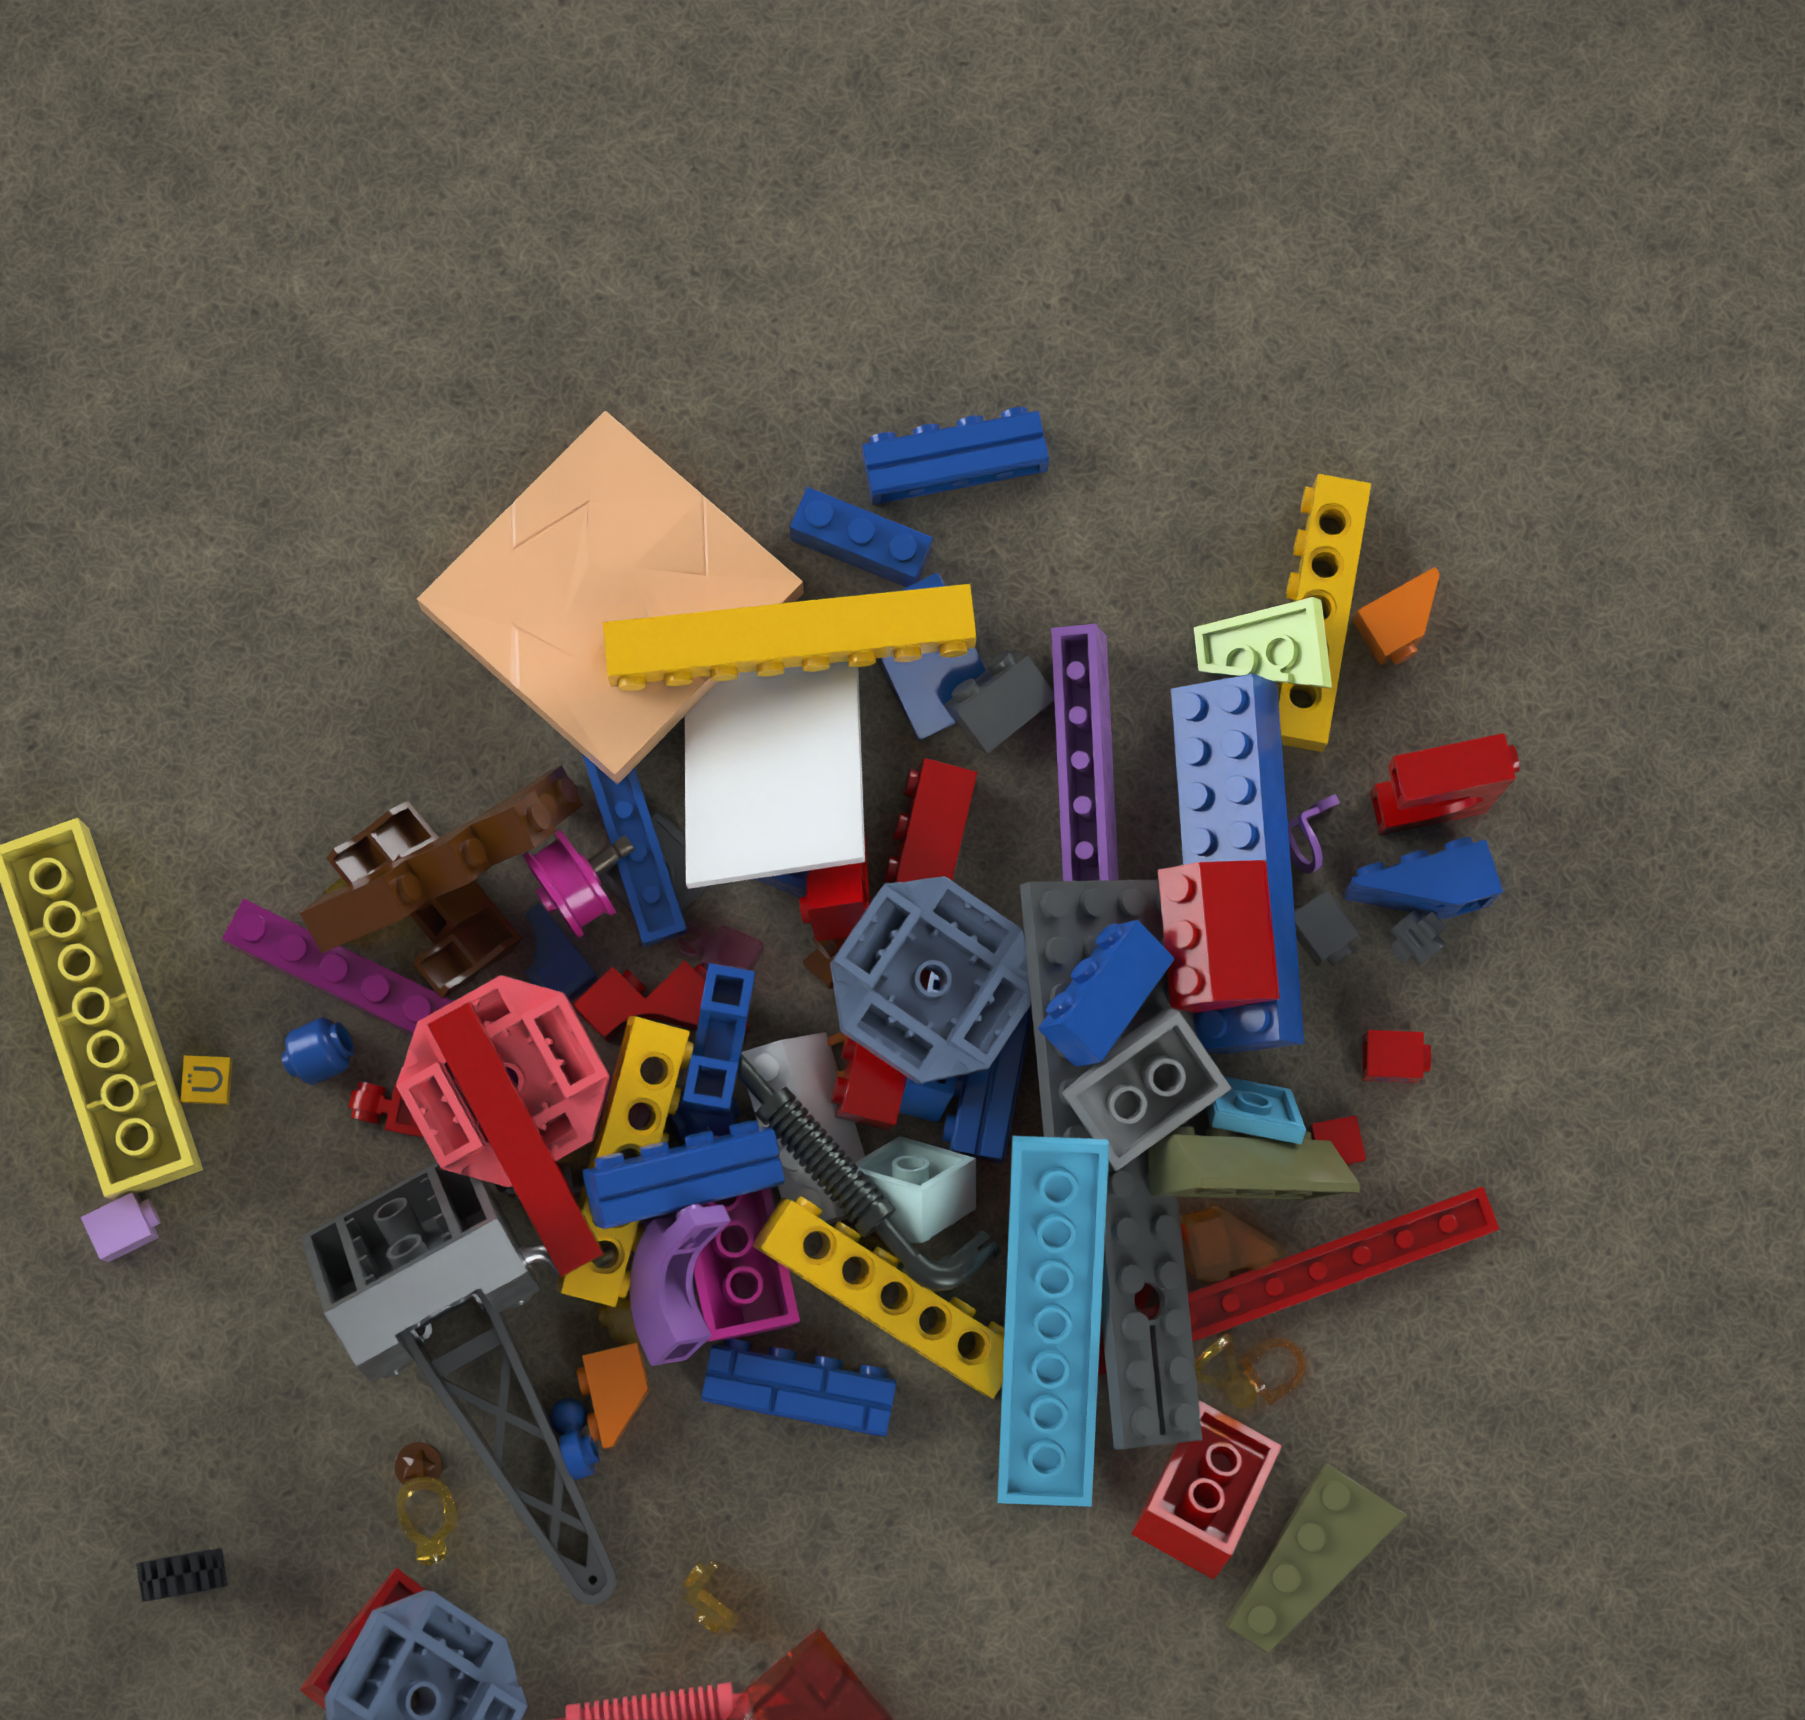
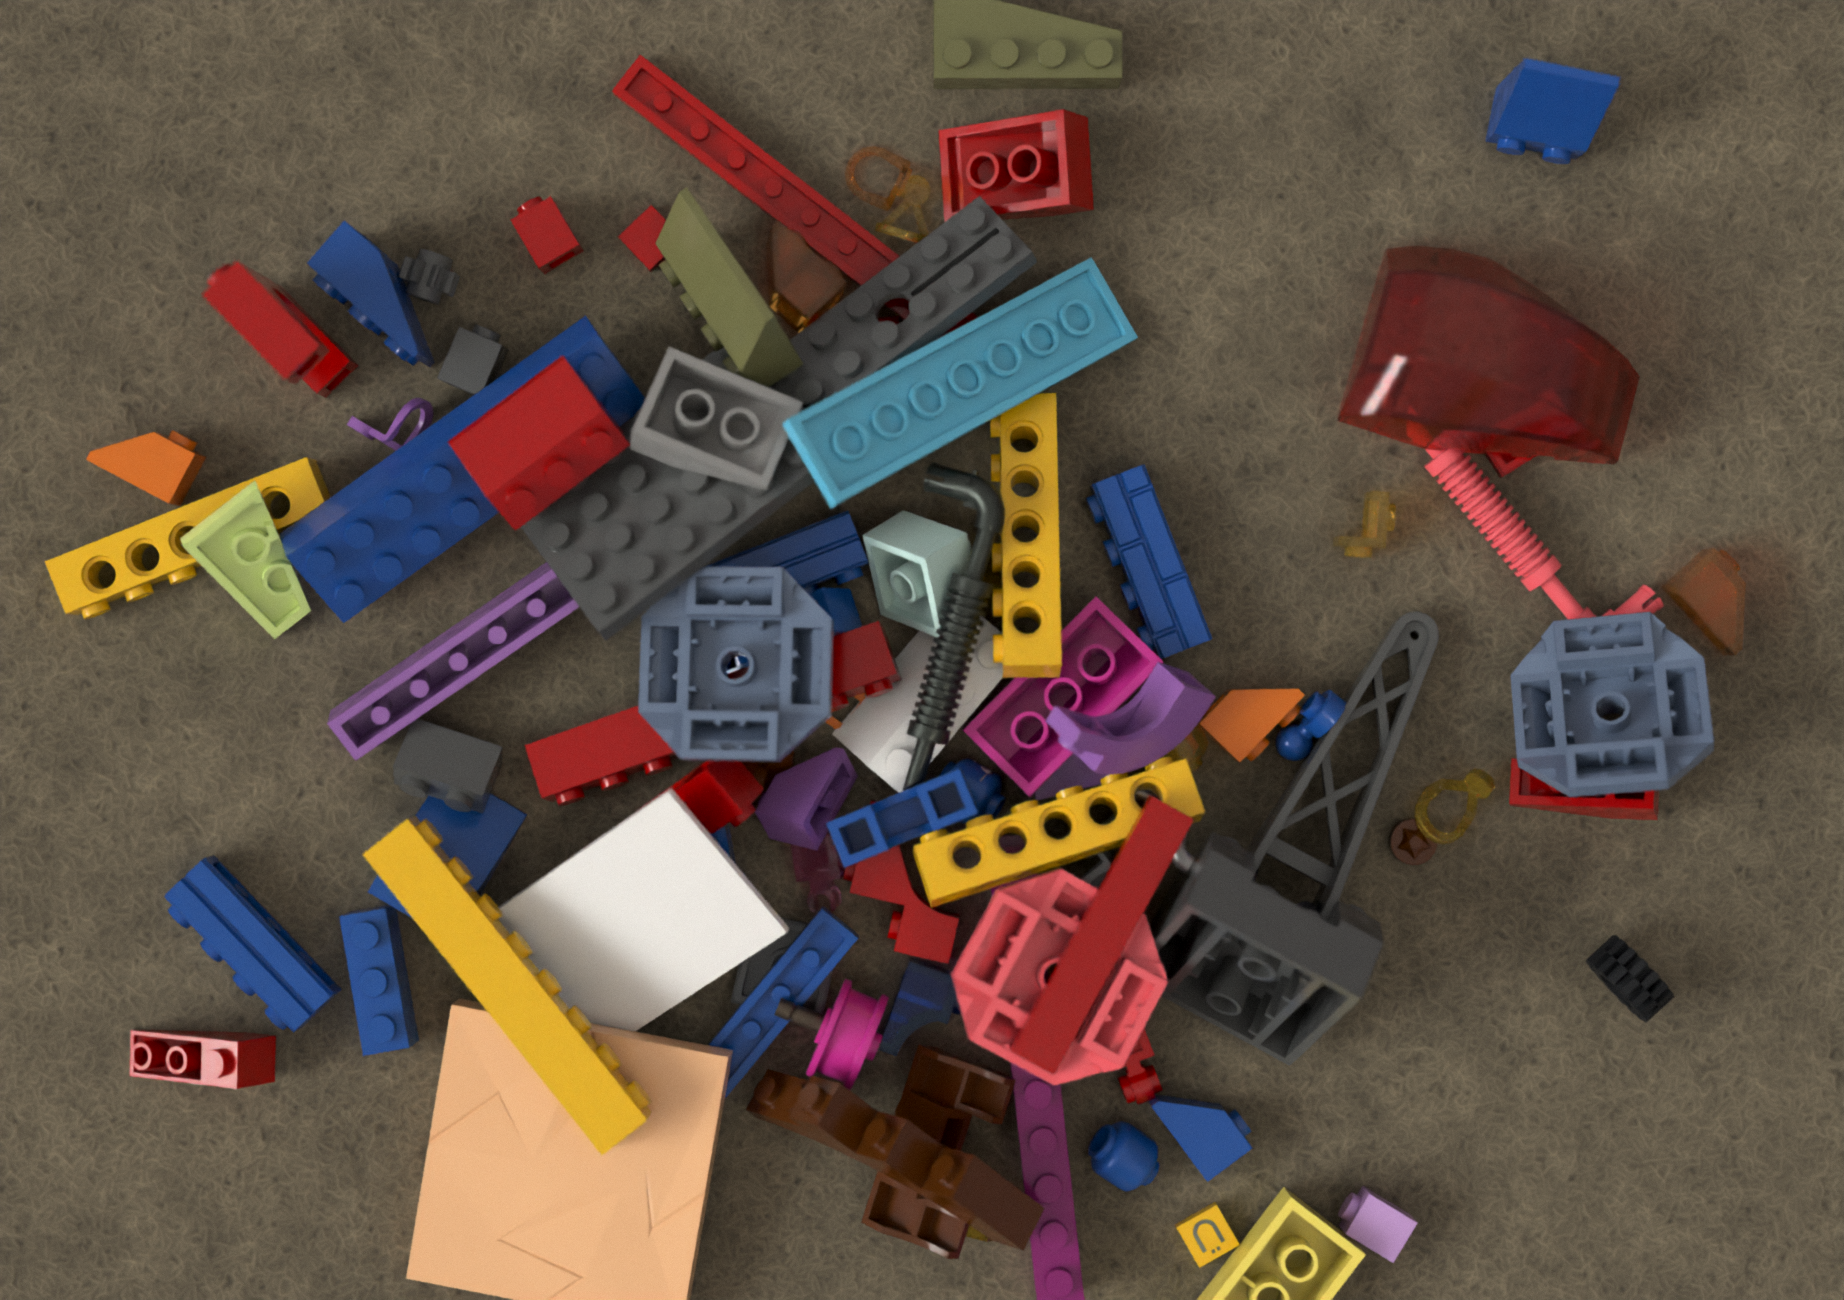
camera: 120 degrees left, 10 degrees up
(294, 1130) = (1204, 1132): none -> blue slope
(682, 1176) = (1042, 771): blue brick -> none
(785, 975) = (806, 799): none -> medium lavender slope
(887, 363) = (203, 1057): none -> red slope
(1105, 992) = (654, 506): blue brick -> none
(1258, 1111) = (669, 316): medium azure tile -> none

